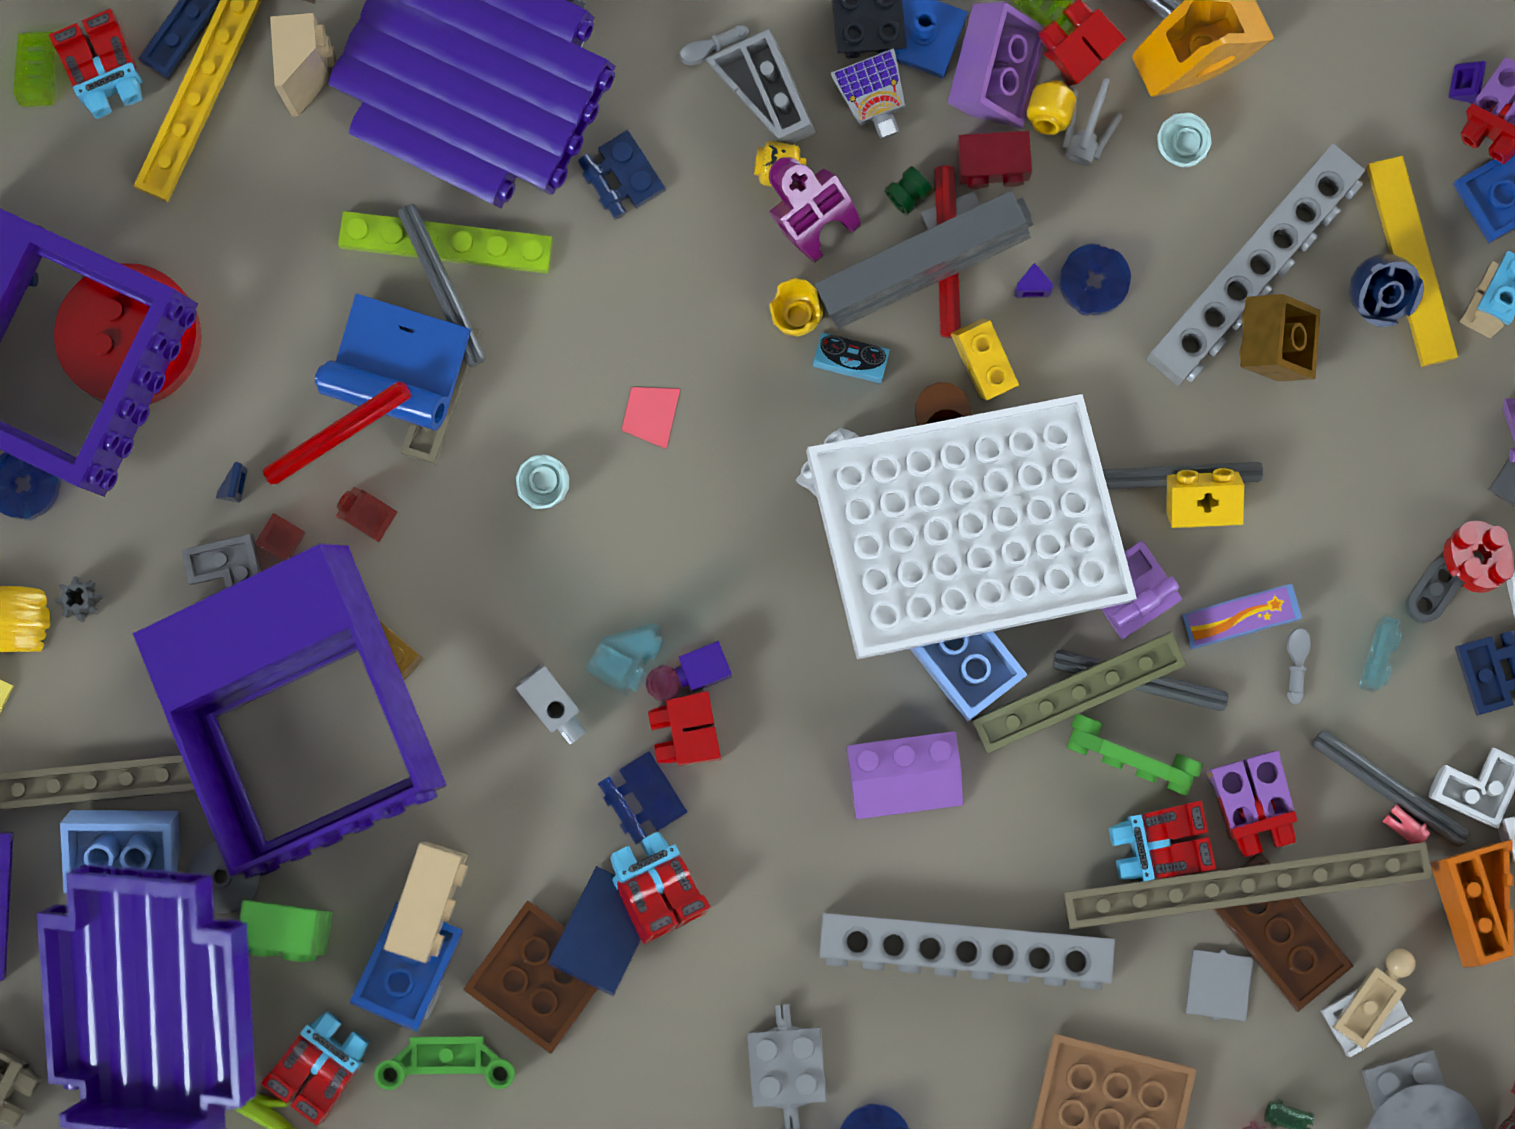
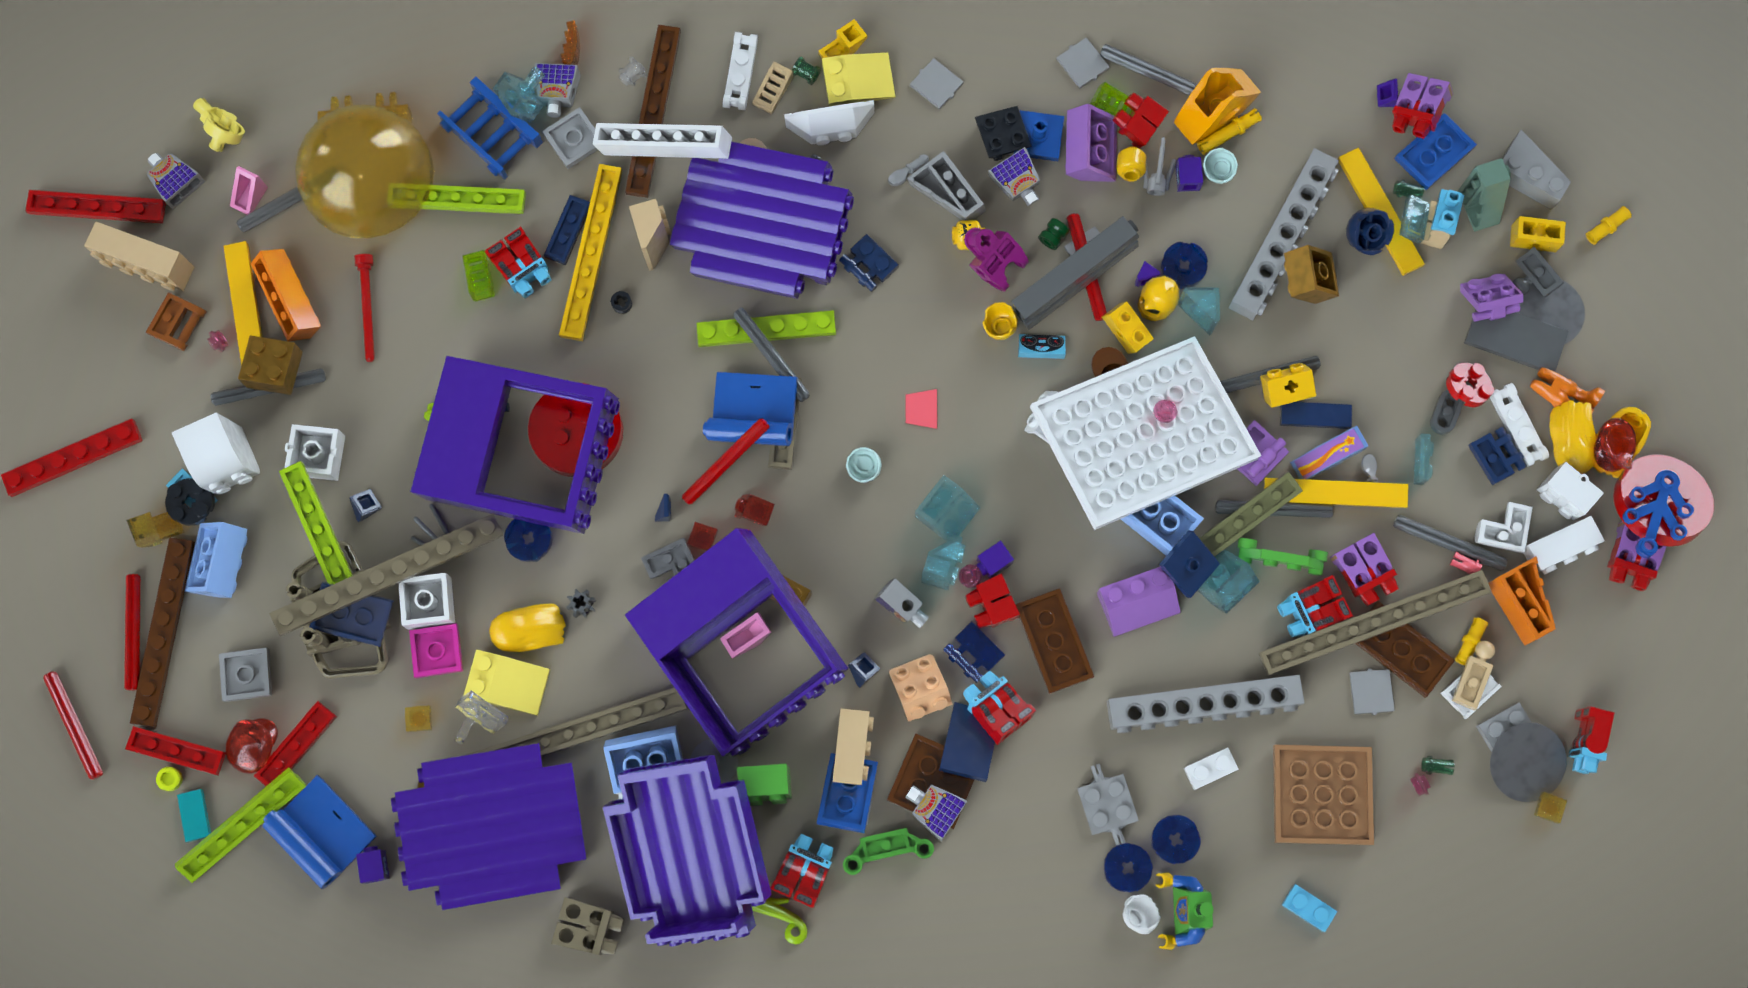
camera: 10 degrees left, 5 degrees down
(228, 149) = (617, 308): none -> black bush
(309, 701) = (746, 635): none -> bright pink slope
(473, 786) = (863, 669): none -> dark blue slope
(529, 1021) = (936, 809): none -> torso
(550, 833) = (920, 687): none -> light nougat bracket
(650, 576) = (947, 509): none -> clear light blue slope
(765, 807) = (1054, 641): none -> reddish brown plate
(952, 1047) = (1211, 768): none -> white plate
(989, 738) = (1189, 564): none -> dark blue plate
(994, 159) = (1103, 203): dark red brick -> none
(1006, 501) = (1165, 411): none -> clear pink plate
(1038, 772) = (1228, 582): none -> clear light blue slope
(1044, 319) = (1159, 294): none -> yellow piece
(1104, 350) = (1202, 306): none -> clear light blue slope
(1135, 140) = (1189, 173): none -> dark purple brick
(1225, 84) = (1236, 127): none -> yellow pin
(1238, 552) = (1316, 415): none -> dark blue tile
(1257, 681) = (1349, 493): none -> yellow tile
(1385, 942) = (1471, 640): none -> yellow pin
(1459, 285) = (1414, 219): none -> clear light blue plate
(1461, 237) = (1406, 189): none -> clear green pin

